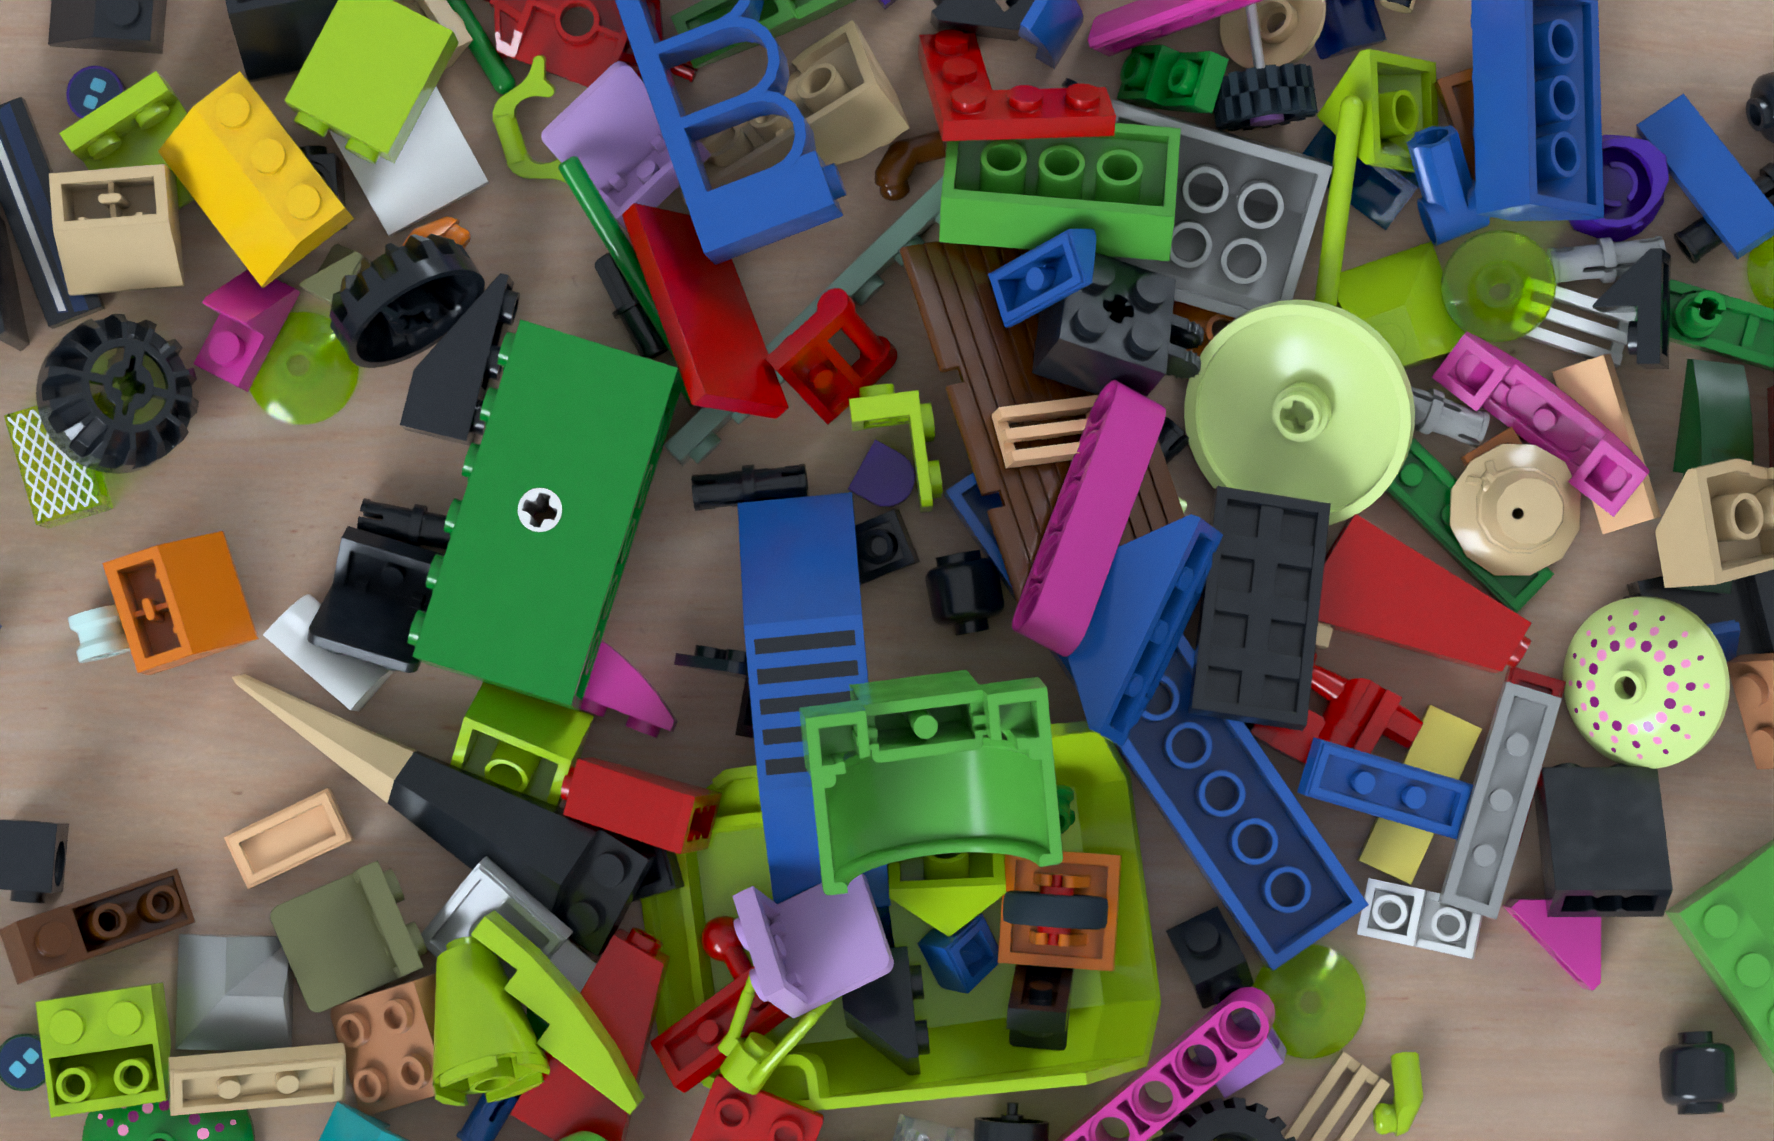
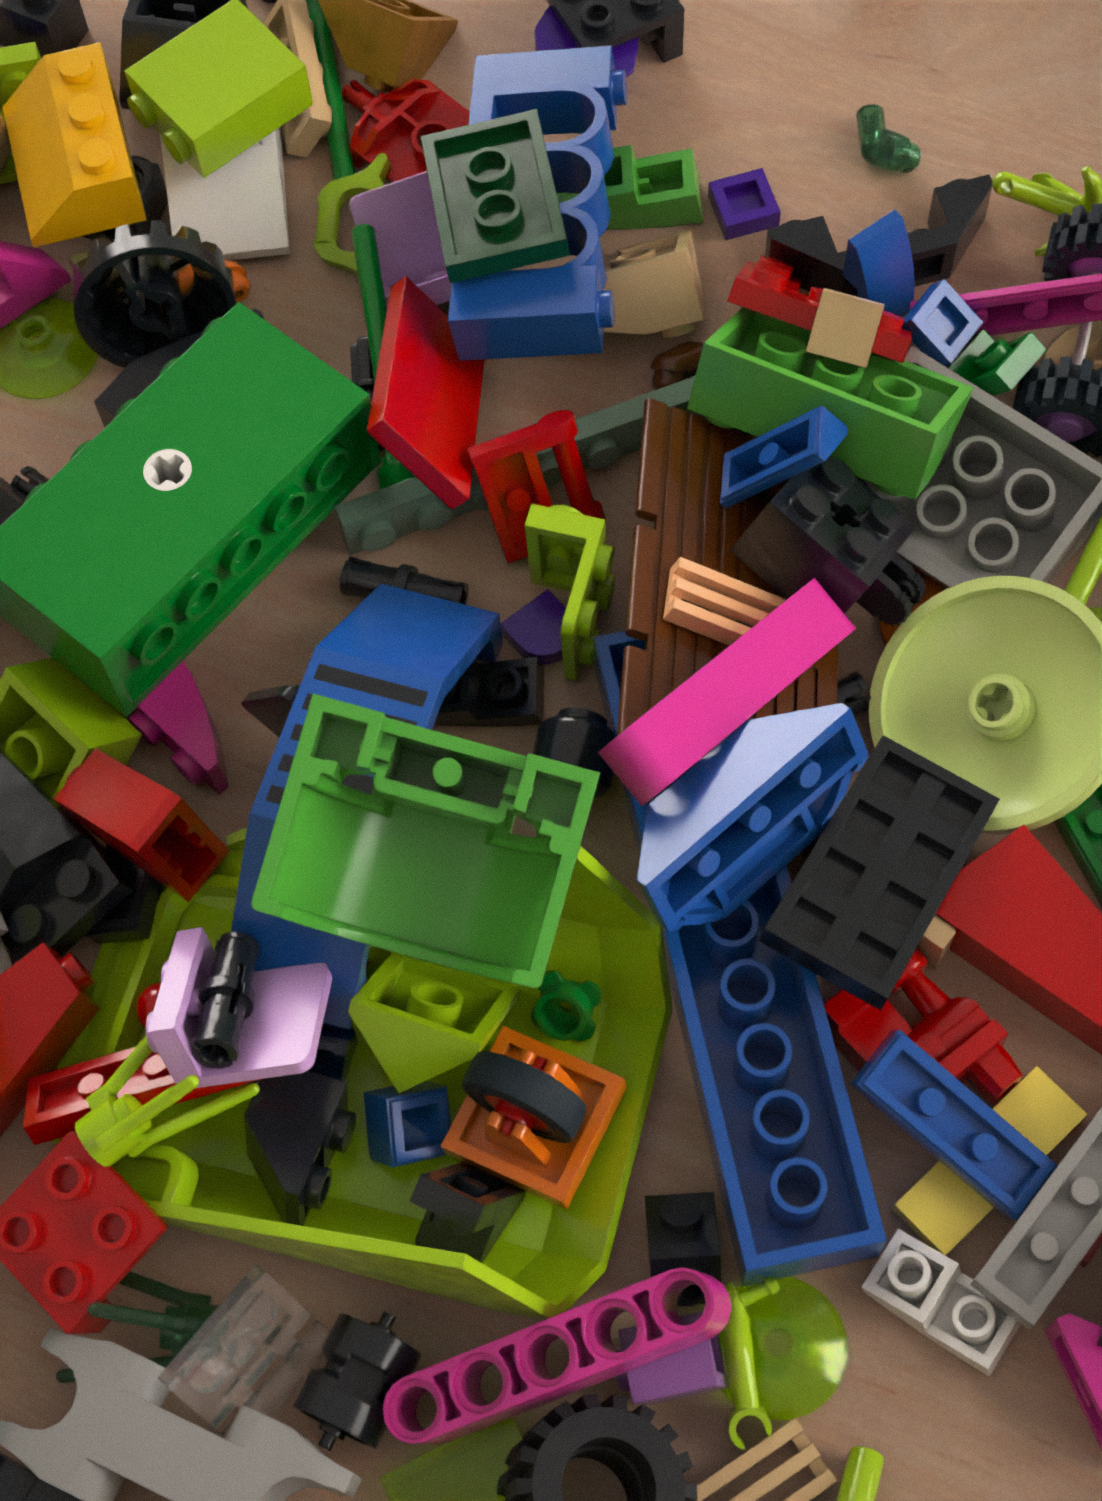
camera: 30 degrees right, 20 degrees down
(692, 112) = (494, 196): none -> dark green plate
(799, 935) = (226, 1000): none -> black pin
(1056, 132) = (845, 327): none -> tan tile
(1125, 64) = (941, 323): none -> tile
(1288, 1027) = (740, 1357): none -> lime piece

